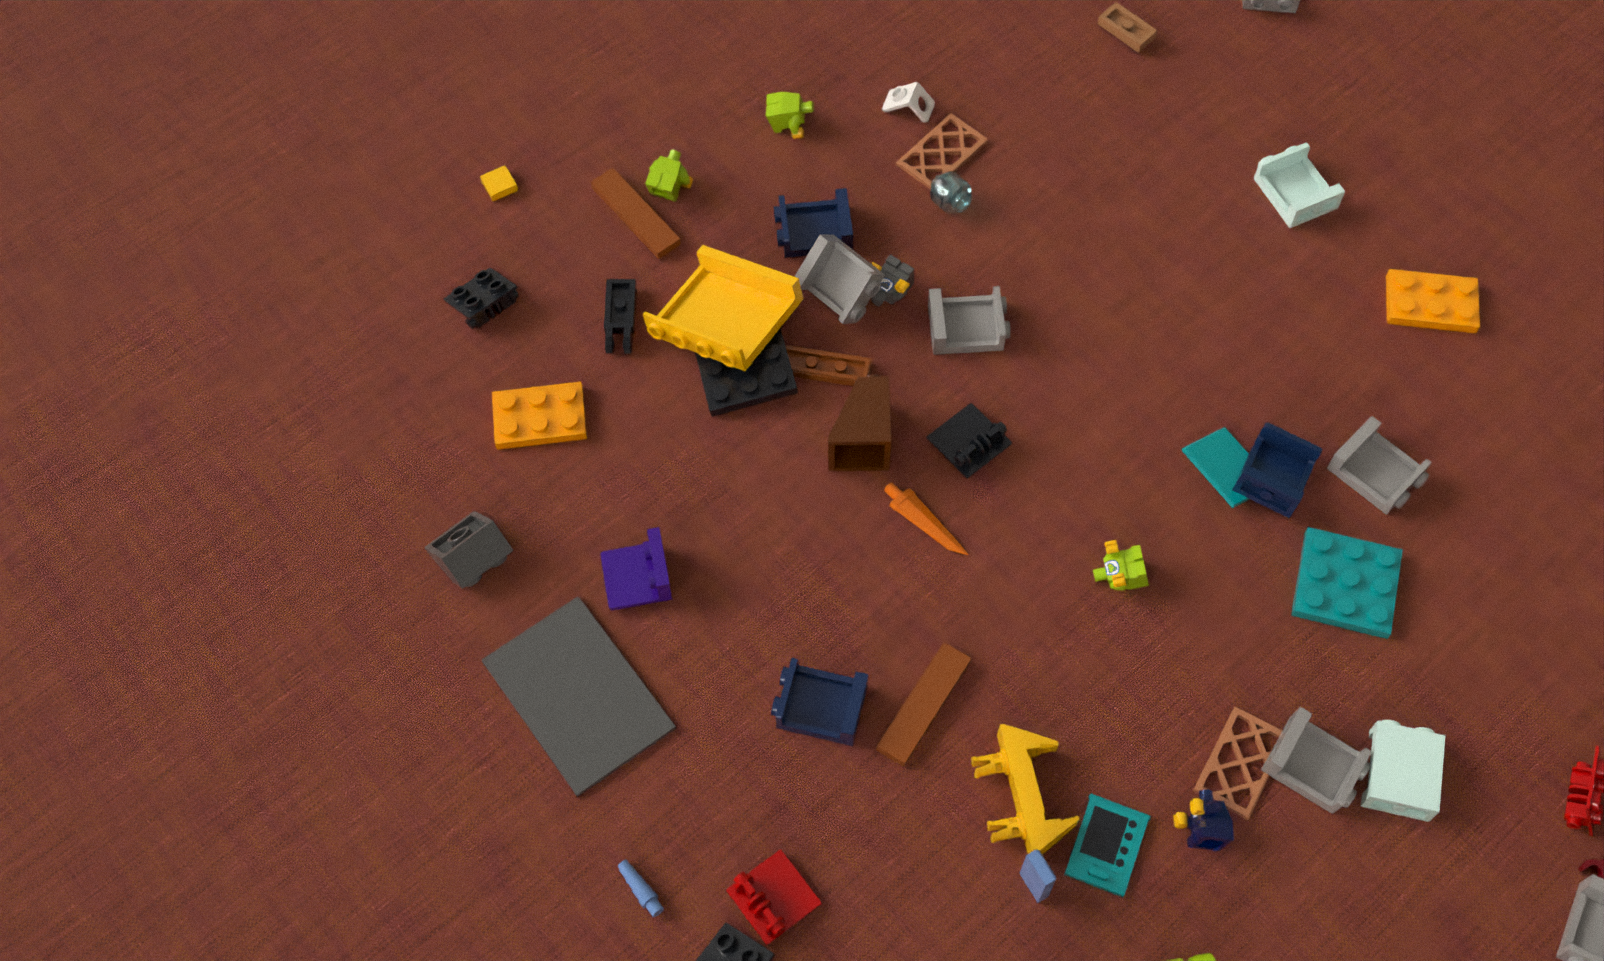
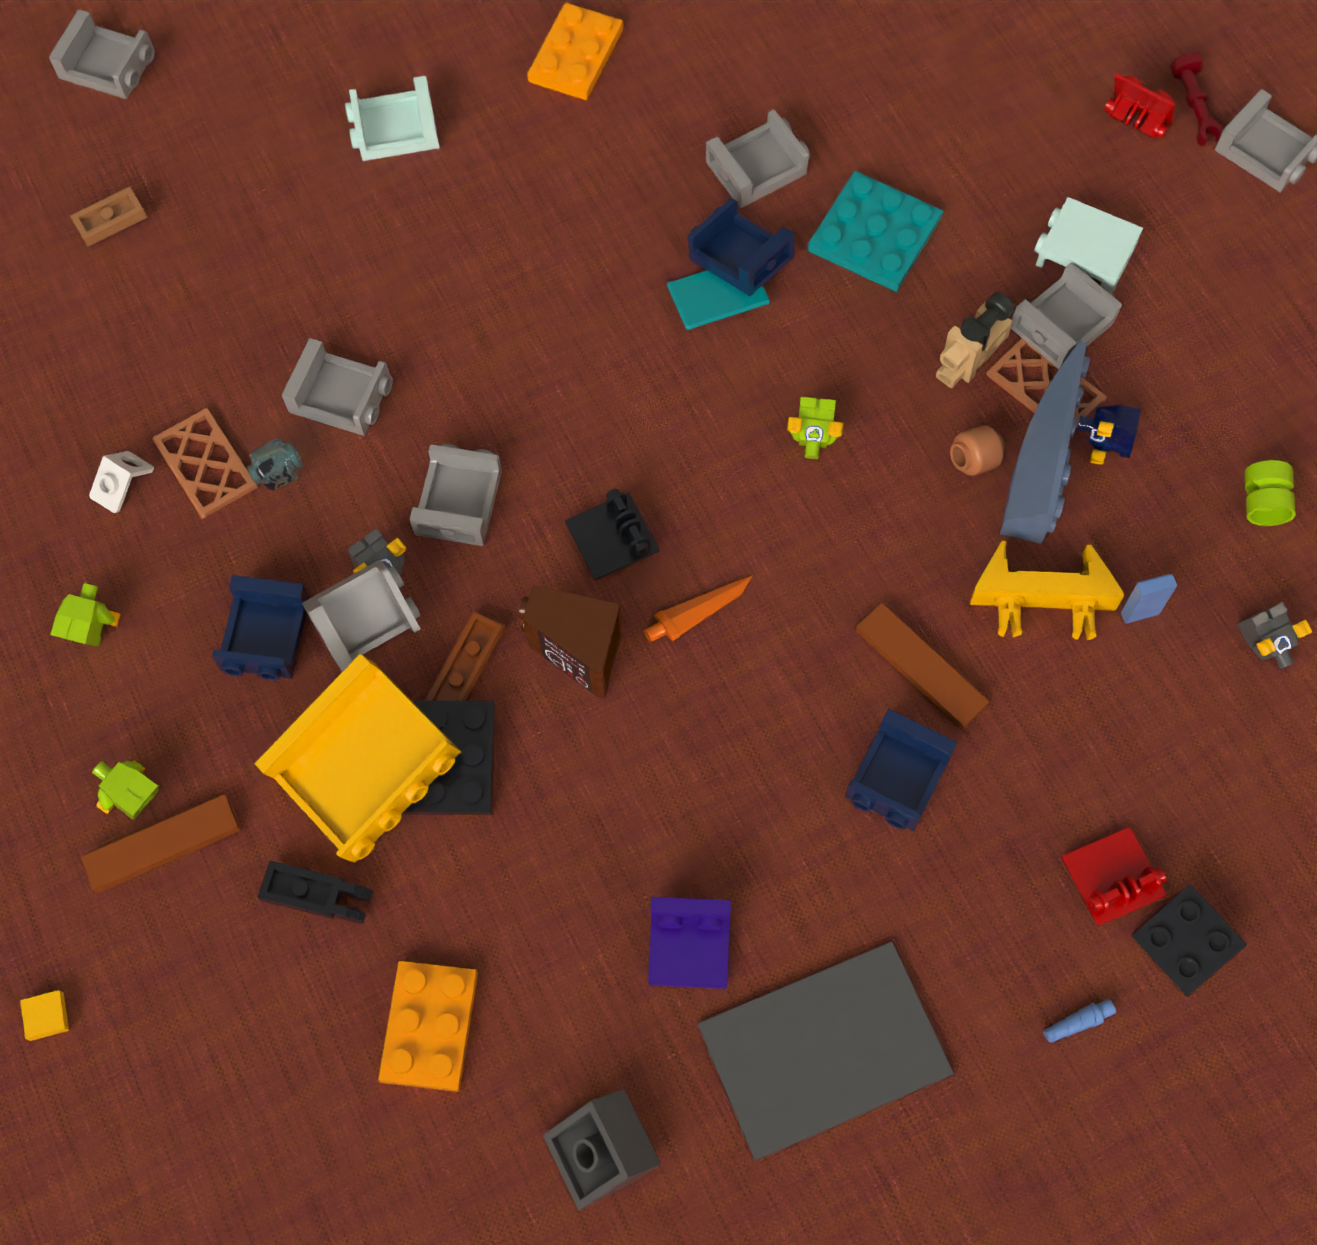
camera: 75 degrees left, 5 degrees up
(479, 294) = (222, 1069): black hinge -> none
(1032, 214) = (336, 389): none -> light grey panel
(1107, 845) = (1112, 531): teal container -> none
(1145, 708) = (977, 450): none -> nougat head
(1167, 764) = (1043, 460): none -> sand blue wedge
(1252, 683) = (976, 341): none -> tan hips

